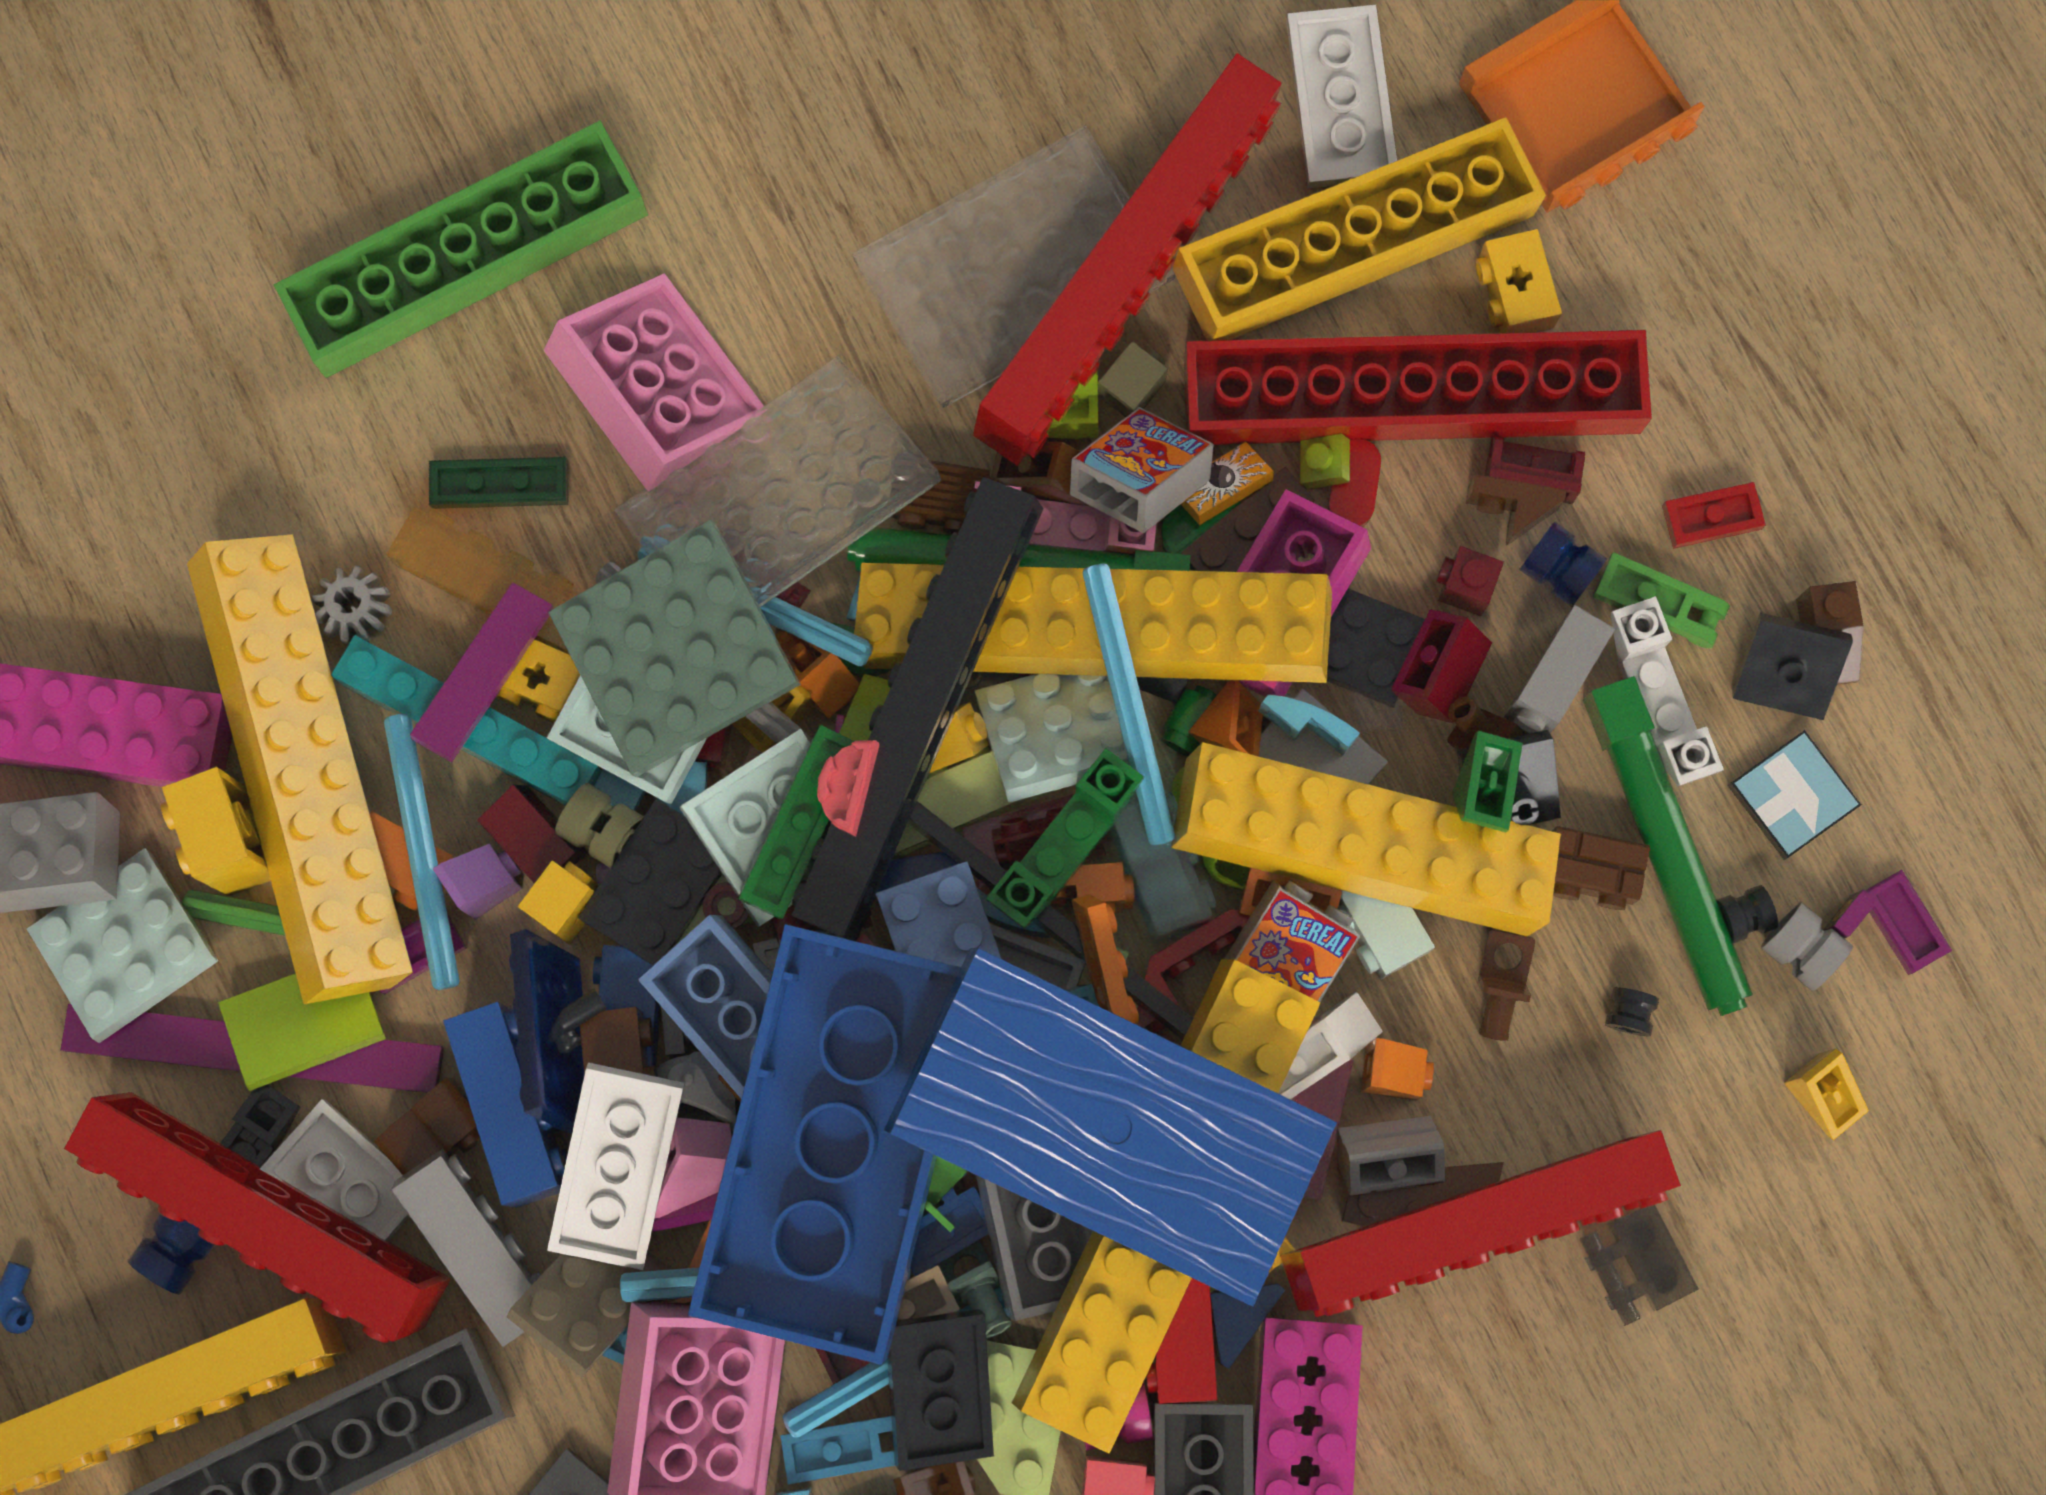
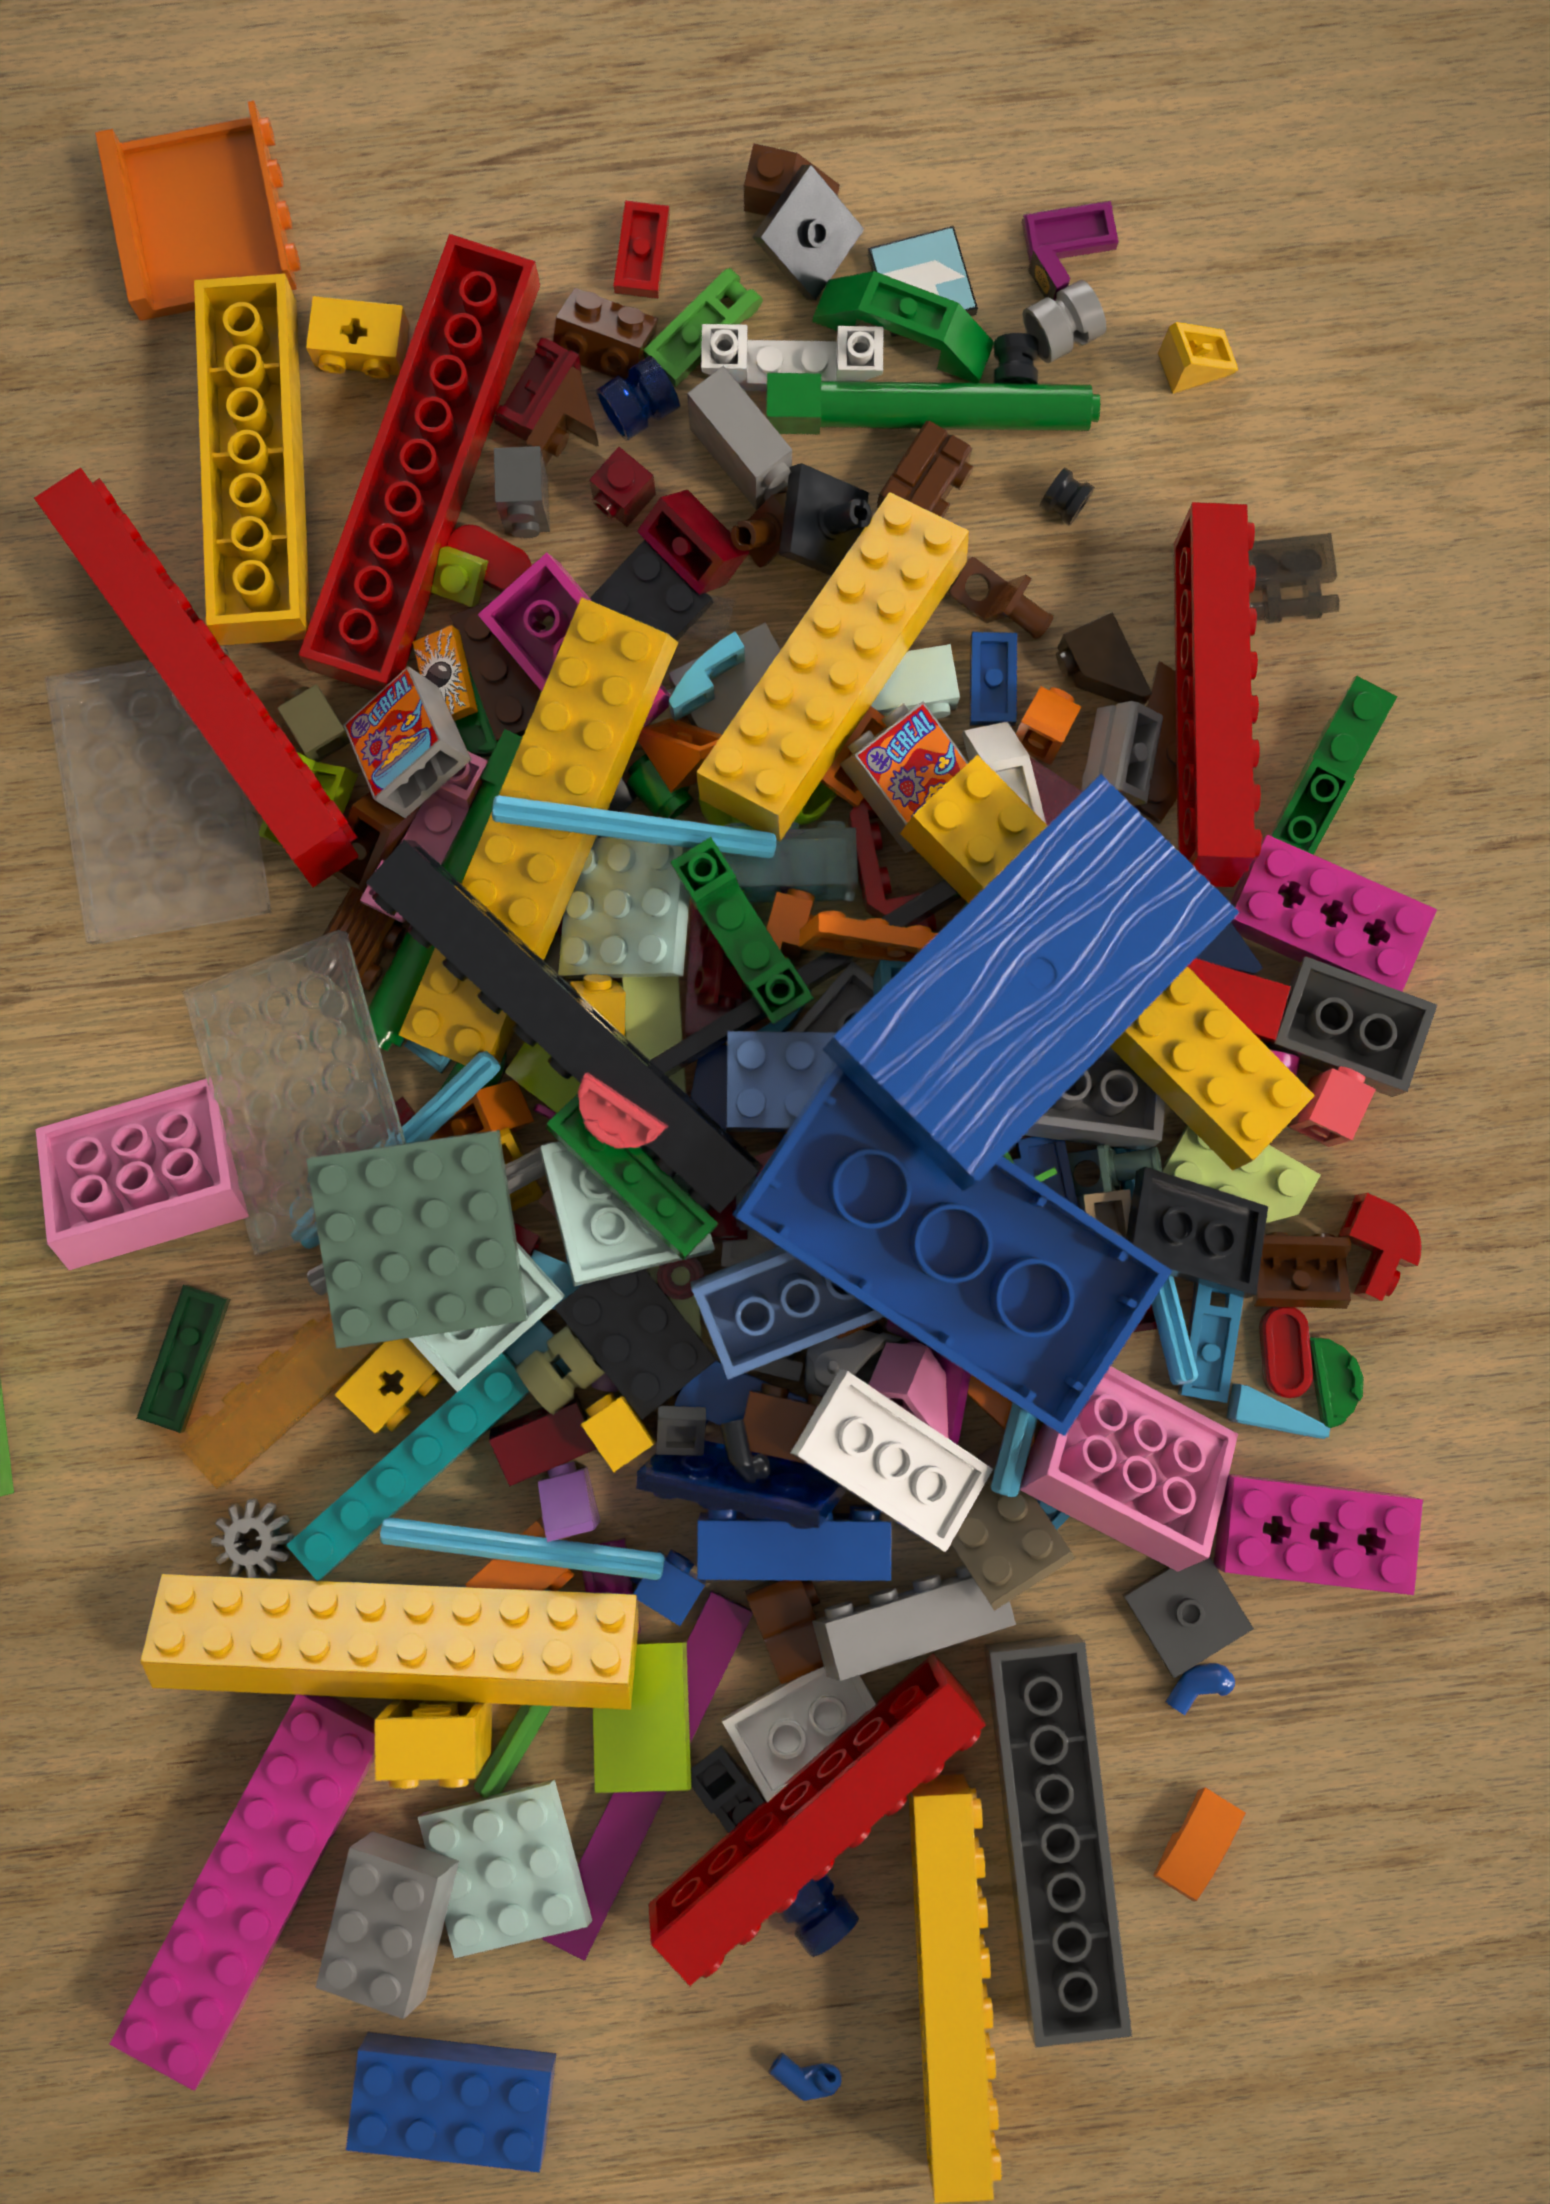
camera: 75 degrees left, 5 degrees up
(427, 1007) = (674, 1591): none -> blue brick
(481, 672) = (370, 1432): magenta tile -> none
(580, 958) = (681, 1430): none -> dark grey plate
(1340, 93) = (108, 429): white plate -> none
(1421, 1003) = (993, 678): none -> blue plate
(1425, 488) = (522, 491): none -> dark grey brick
(1459, 1372) = (1333, 765): none -> green slope
(1479, 1104) = (1102, 662): none -> dark brown slope
(1488, 781) = (822, 534): green slope -> none
(1616, 508) = (603, 332): none -> reddish brown bracket
(1748, 794) = (911, 314): none -> green slope

